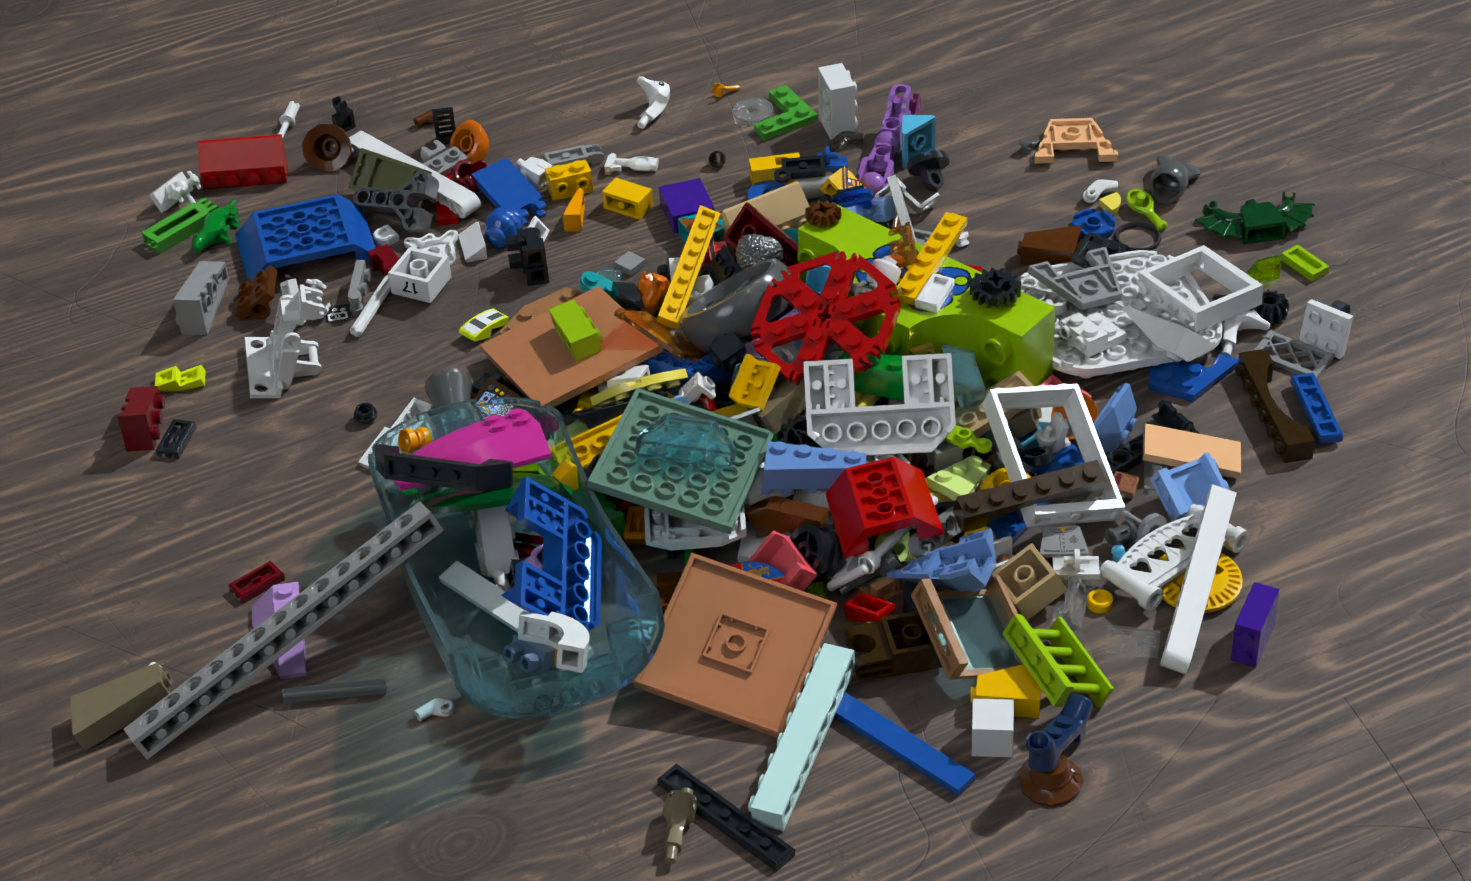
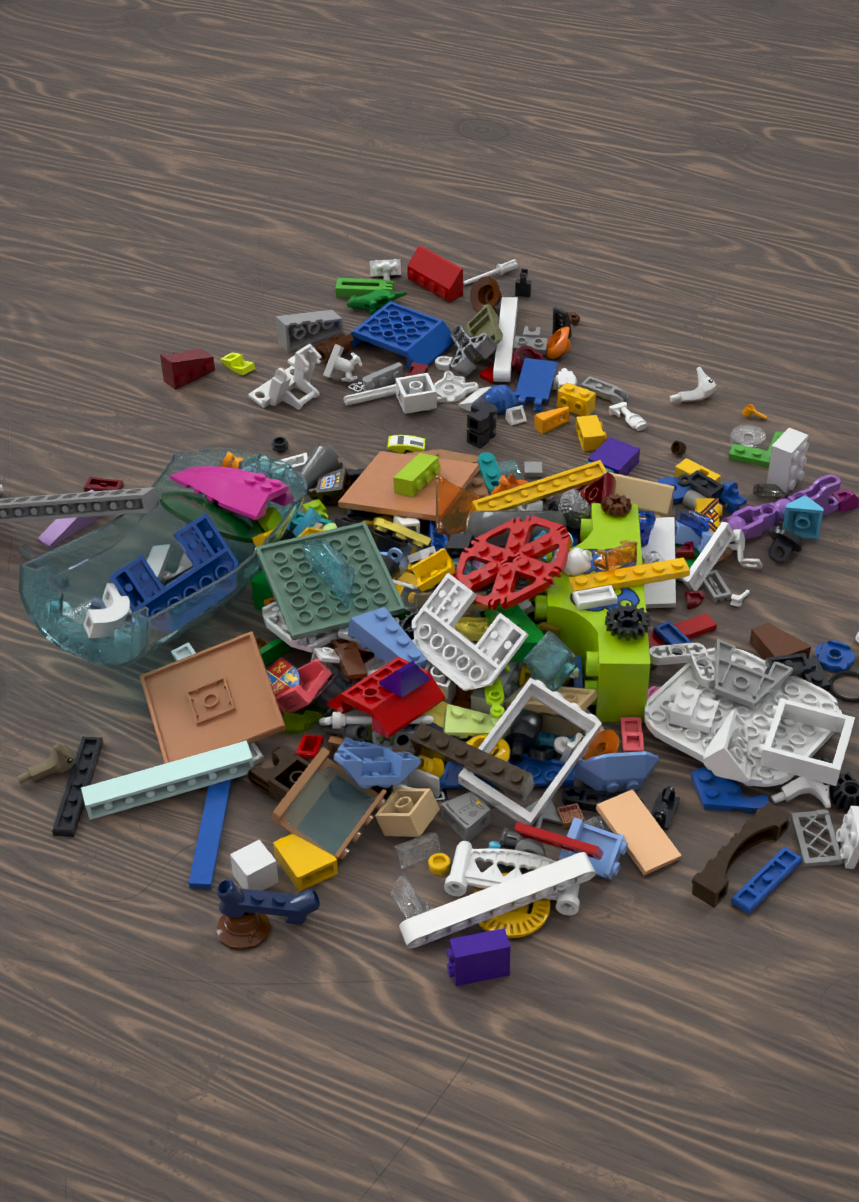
camera: 50 degrees right, 0 degrees up
(180, 438) = (189, 391): black tile -> none
(442, 472) = (177, 465): black slope -> none
(629, 295) = (489, 481): black slope -> none
(761, 525) = (325, 655): none -> white bracket
(899, 476) = (405, 679): none -> dark purple slope
(1045, 670) = (322, 863): lime fence -> none
(1085, 566) = (450, 830): white hips -> none
(1173, 497) = (558, 840): none -> red tile

